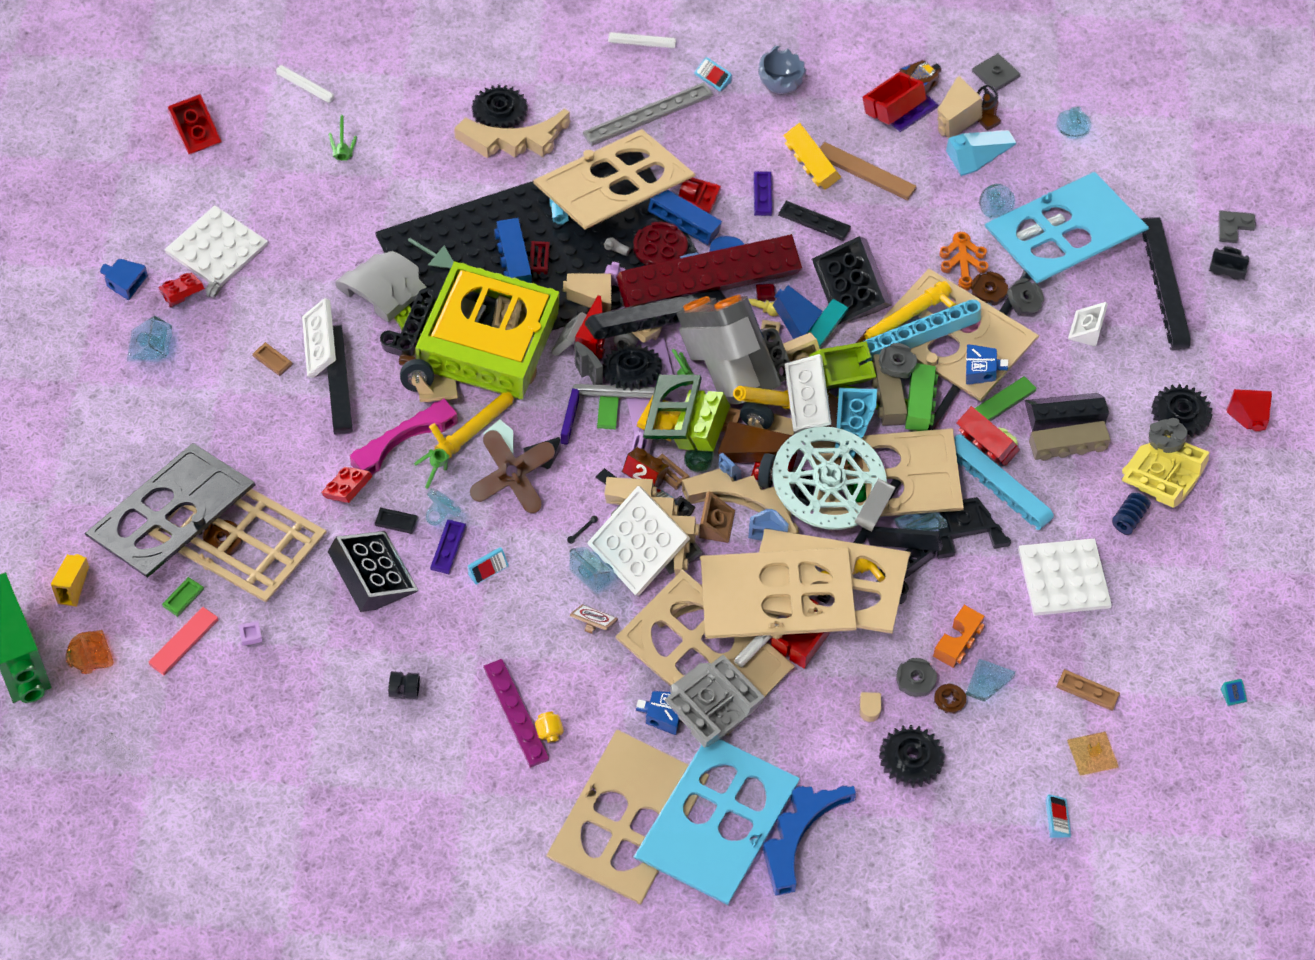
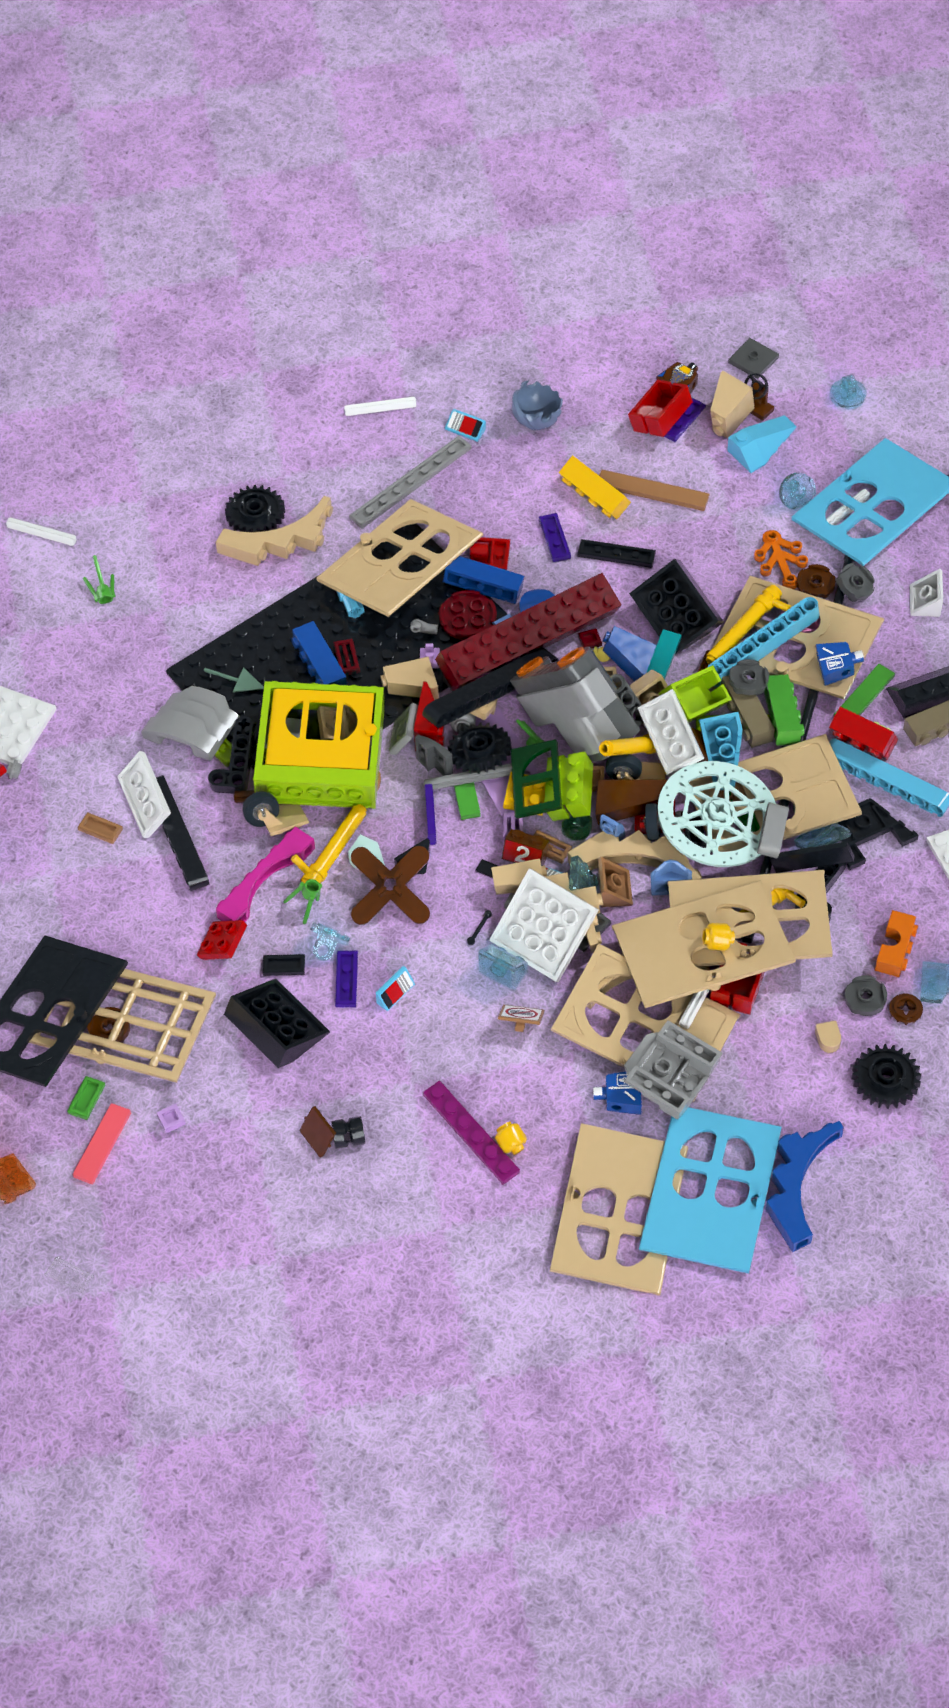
camera: 10 degrees left, 0 degrees up
(376, 677) = (317, 1131): none -> reddish brown piece
(687, 504) = (580, 875): none -> clear light blue wing
(791, 589) = (718, 936): none -> yellow head

